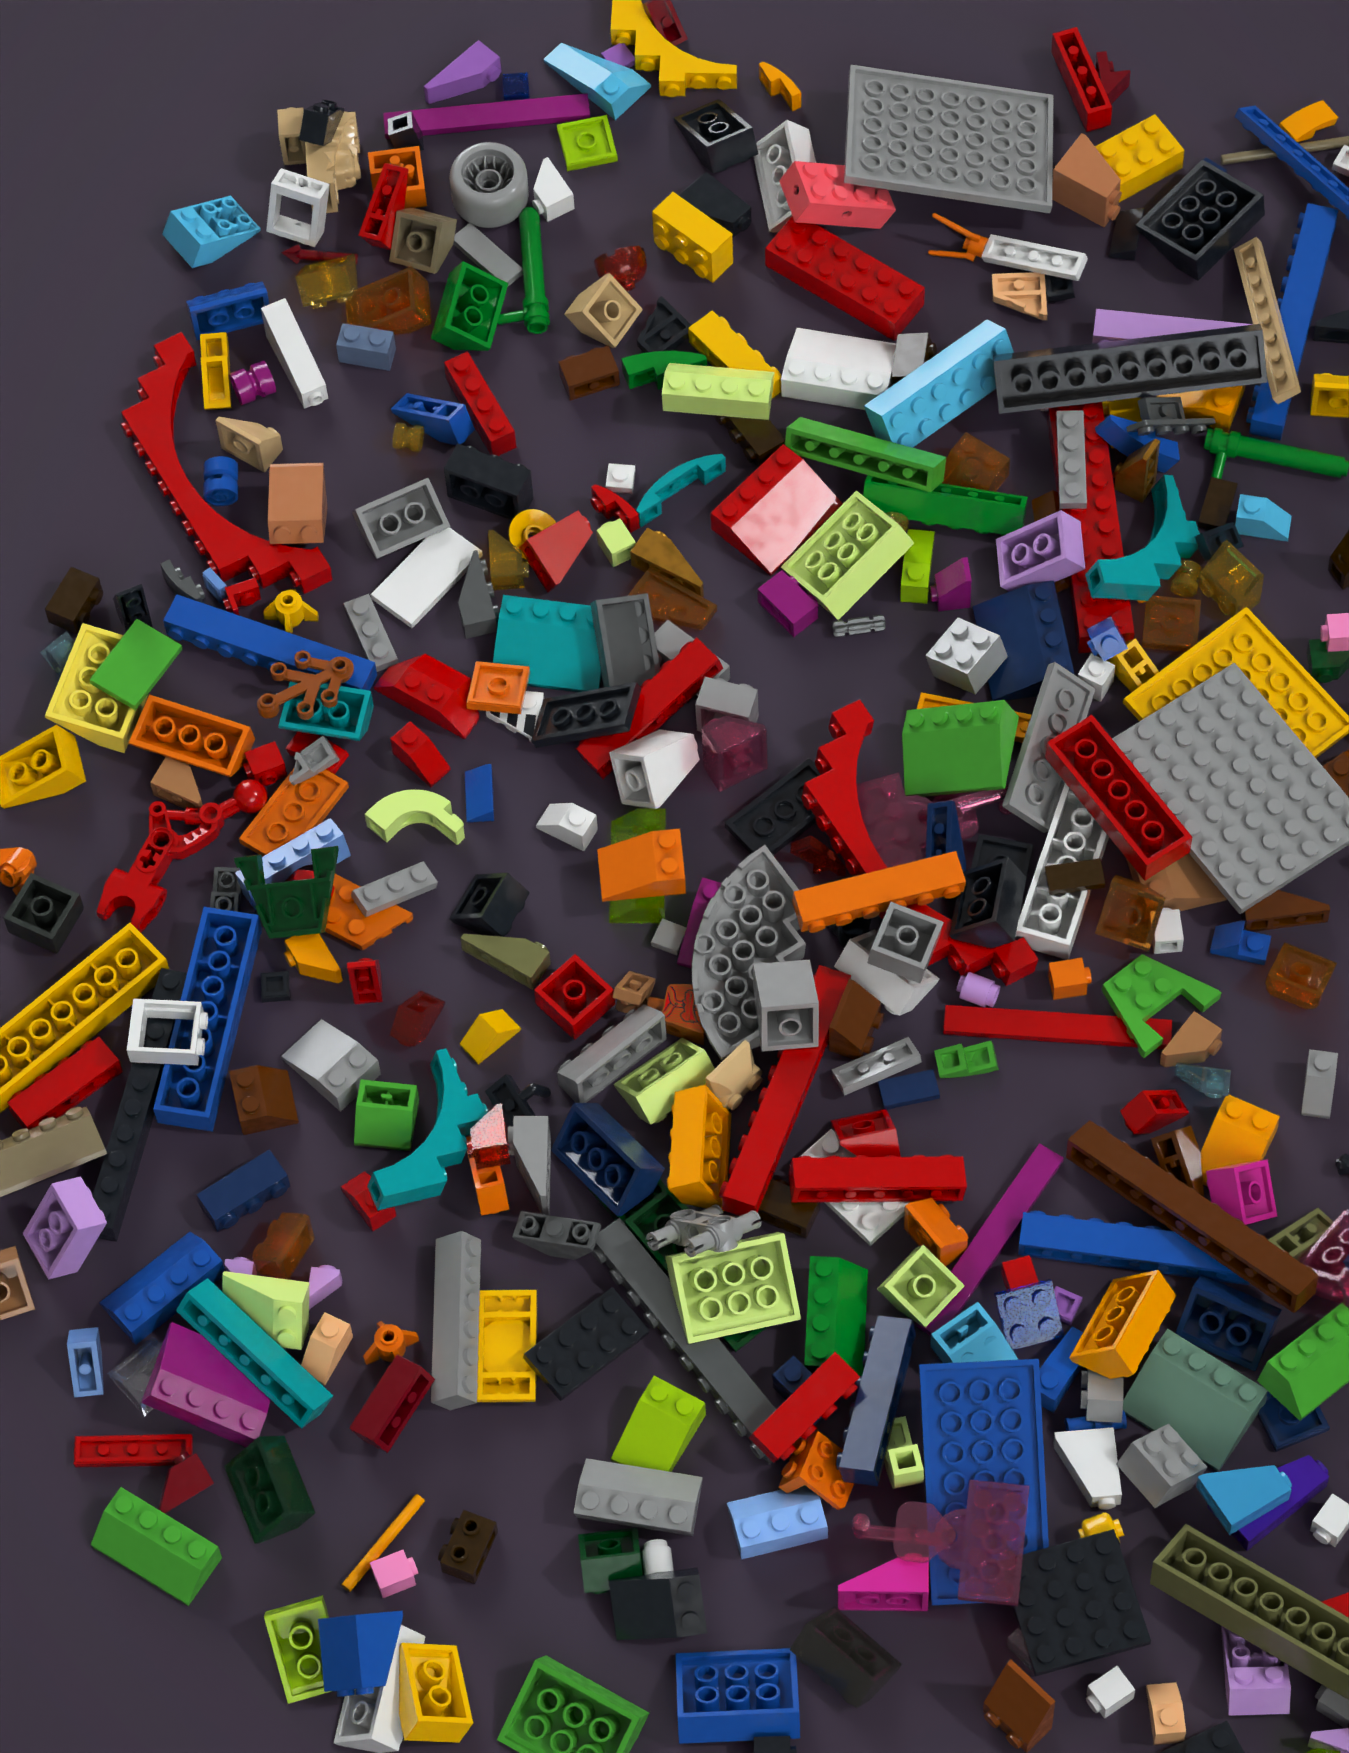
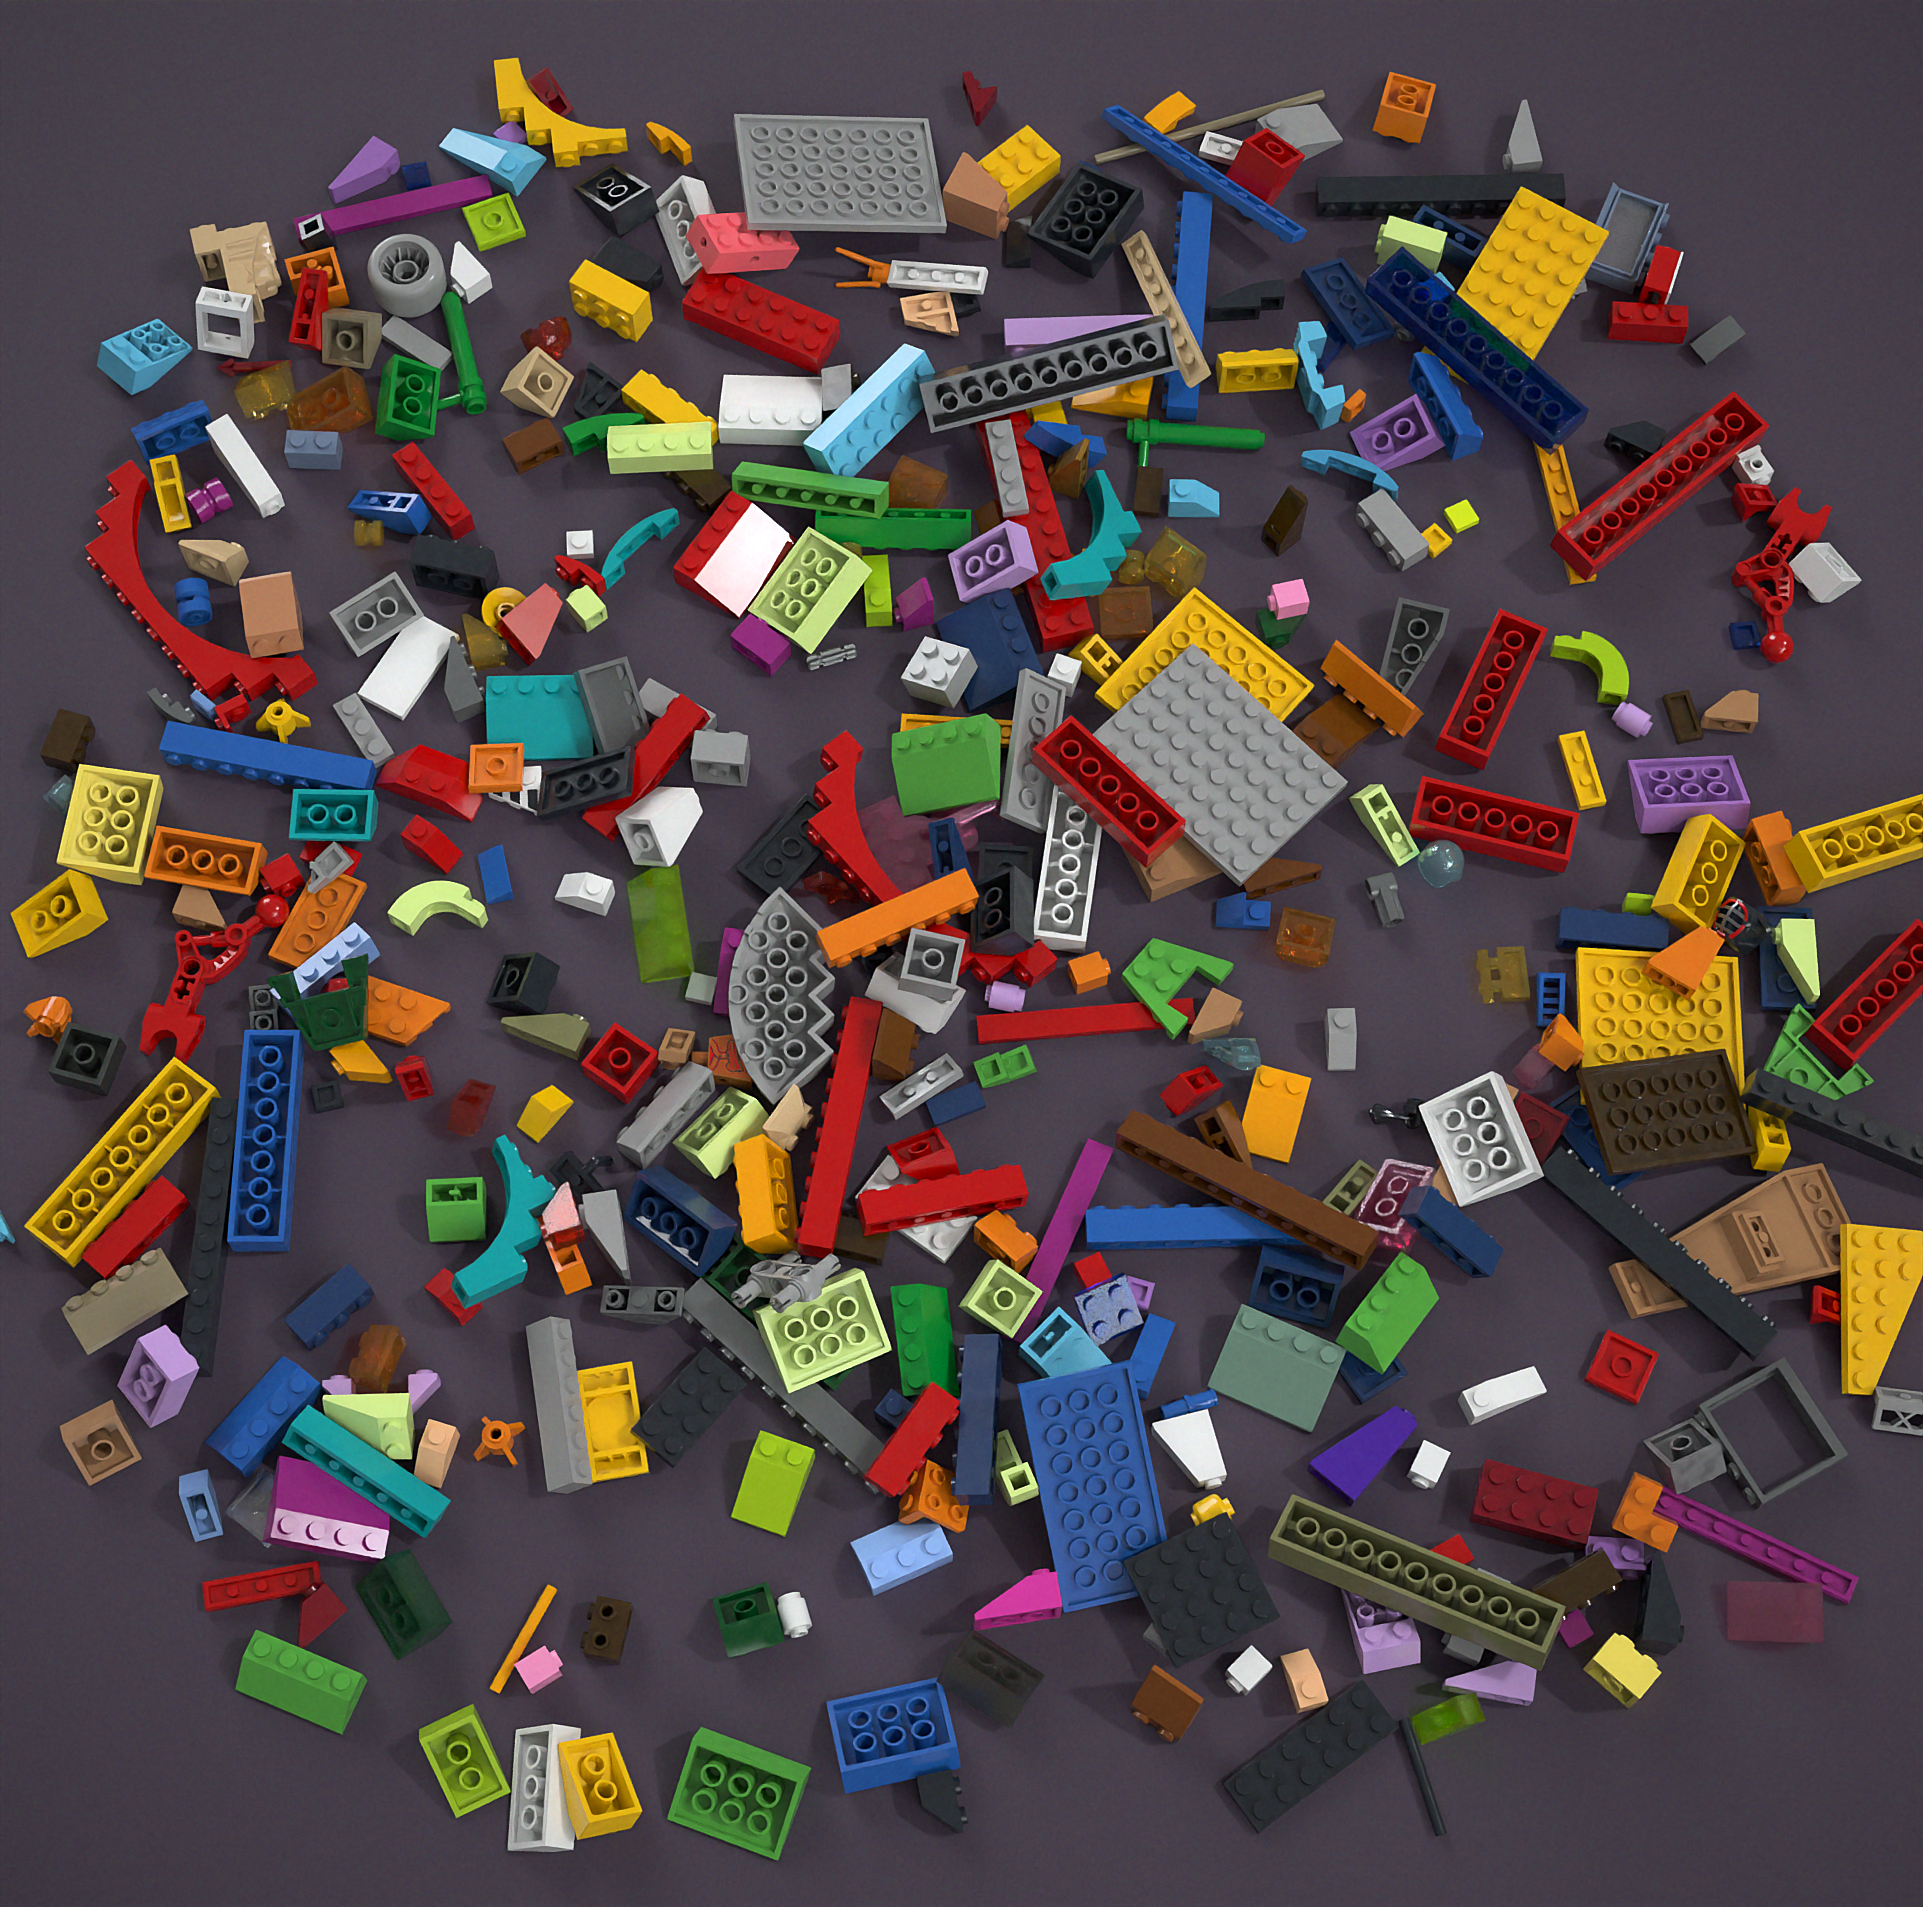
camera: 15 degrees left, 5 degrees up
(132, 605) = (128, 744): black slope -> none
(135, 664) = (138, 797): bright green tile -> none
(166, 1009) = (198, 1162): white window -> none
(263, 1098) = (333, 1211): reddish brown slope -> none
(306, 683) = (310, 792): dark orange plant -> none
(320, 122) = (234, 236): black slope -> none
(332, 1063) = (395, 1165): light grey slope -> none
(358, 1651) = (518, 1757): blue slope -> none
(392, 1403) = (509, 1499): dark red brick -> none
(394, 889) = (428, 982): light grey plate -> none
(638, 1497) = (764, 1552): light grey slope -> none
(643, 866) = (666, 926): orange slope -> none
(658, 1605) = (803, 1659): black slope -> none
(661, 554) = (632, 618): pearl gold slope -> none
(674, 601) = (651, 658): clear orange wing -> none
(733, 750) = (733, 798): clear pink slope -> none
(786, 1005) = (827, 1043): light grey slope -> none
(987, 1542) = (1110, 1544): clear pink plate -> none
(1074, 876) = (1079, 874): dark brown tile -> none
(1081, 79) = (952, 100): red brick -> none
(1102, 1397) = (1192, 1374): light grey brick -> none
(1106, 639) = (1069, 638): brick -> none
(1124, 1325) = (1200, 1306): light orange slope -> none
(1130, 913) = (1137, 901): clear orange slope -> none
(1161, 1465) = (1259, 1439): light grey brick -> none
(1166, 415) = (1087, 414): dark grey bracket -> none
(1169, 932) = (1172, 911): white brick -> none
(1211, 540) = (1151, 528): black plate -> none
(1243, 1191) = (1289, 1156): dark pink slope -> none
(1244, 1494) = (1343, 1456): dark azure slope -> none

